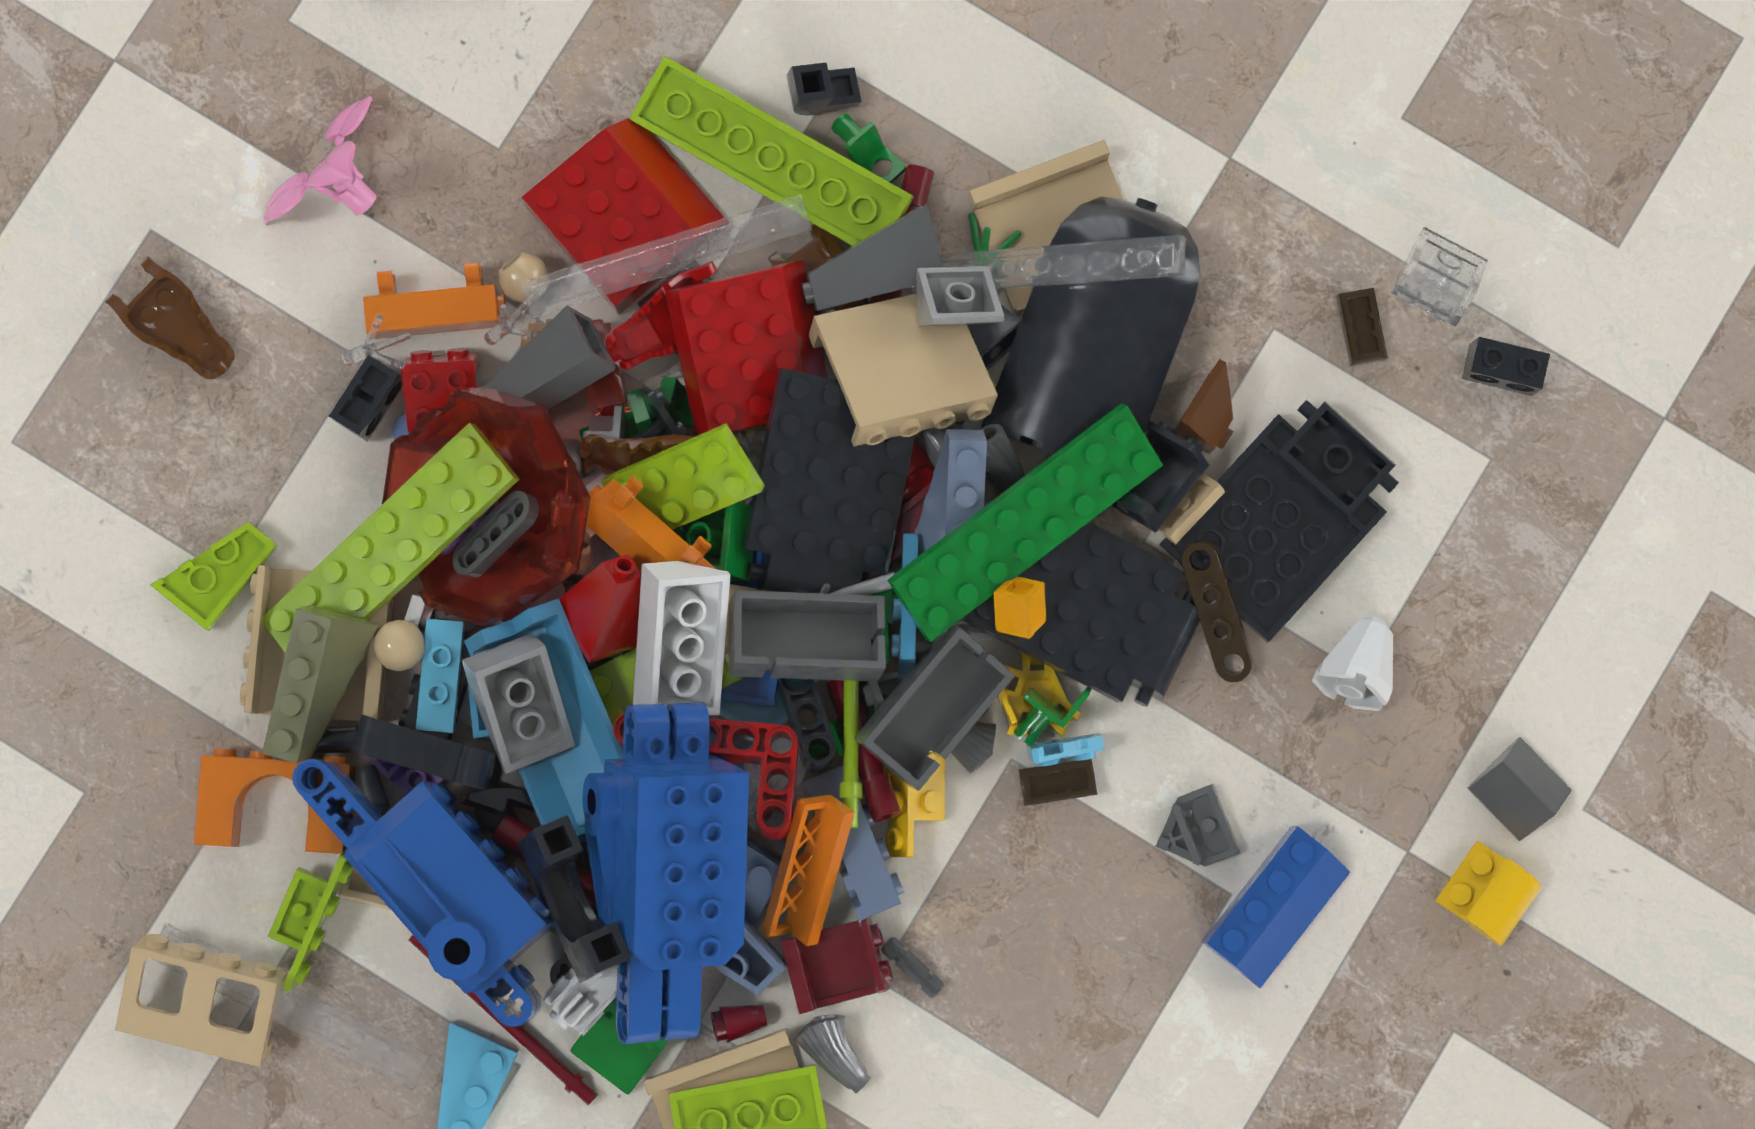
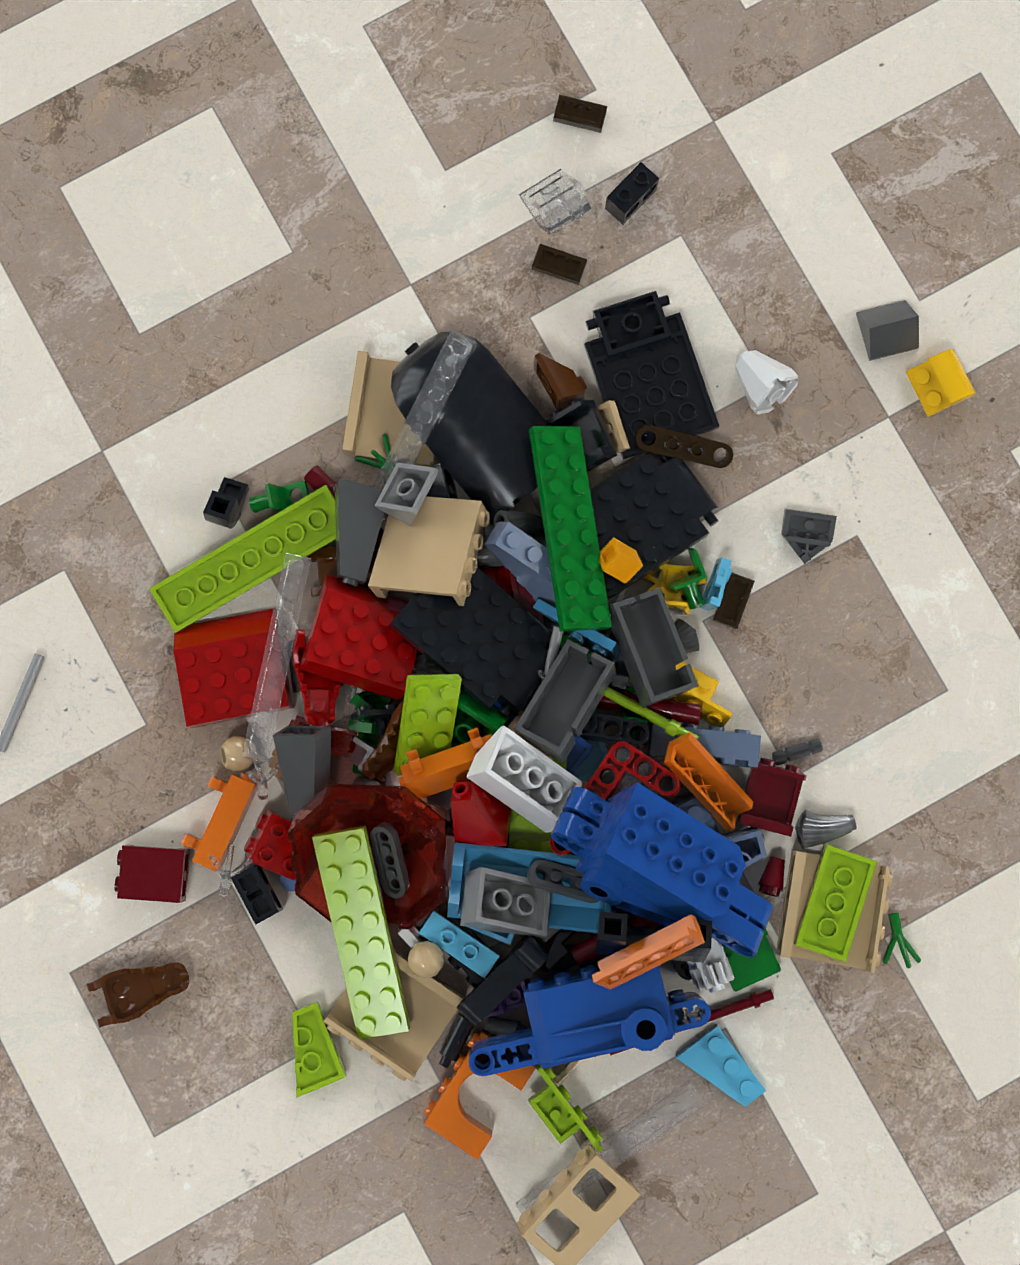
camera: 55 degrees left, 0 degrees up
(313, 678) = (416, 1025): olive wedge -> none
(322, 260) = (152, 873): none -> dark red panel
(335, 170) = (102, 834): bright pink plant -> none
(549, 902) = (649, 953): none -> orange fence
(584, 741) = (553, 876): none -> dark grey plate
(1276, 905) = (878, 512): blue slope -> none
(1572, 244) = (580, 113): none -> dark brown plate

